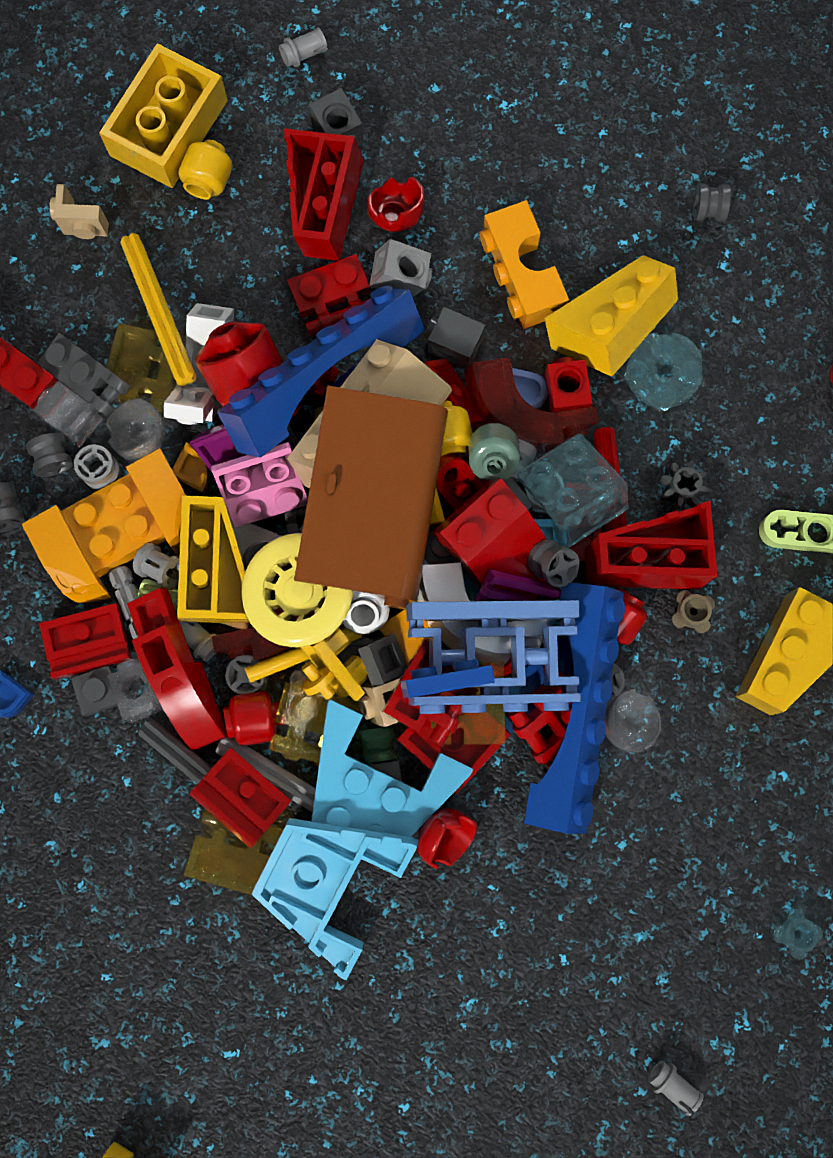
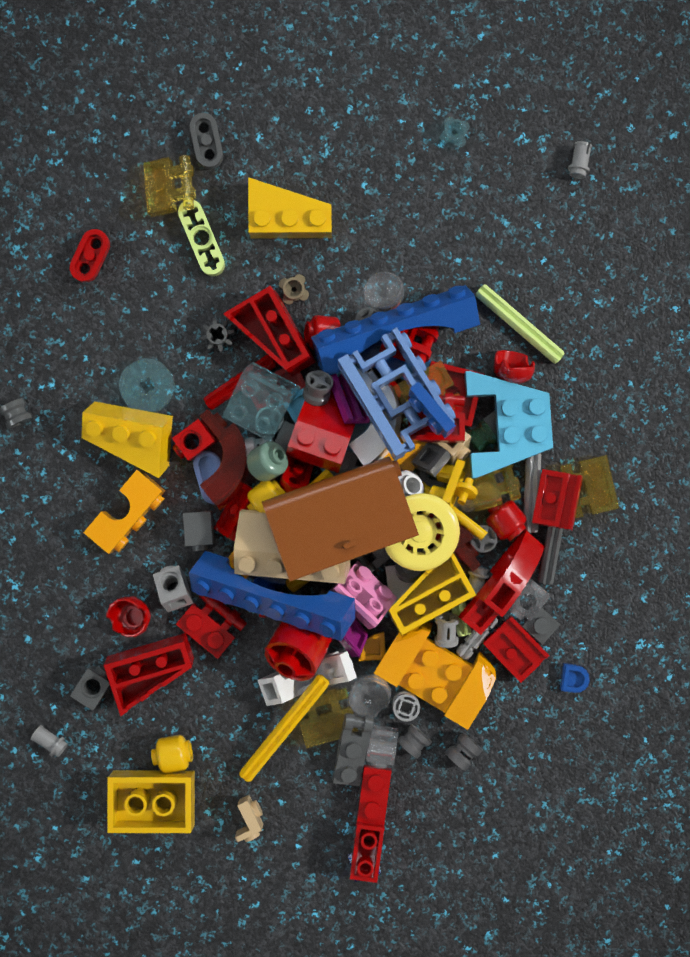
camera: 120 degrees left, 10 degrees up
(311, 874) = (577, 433): medium azure wing -> none
(496, 879) = (519, 324): none -> yellowish green axle

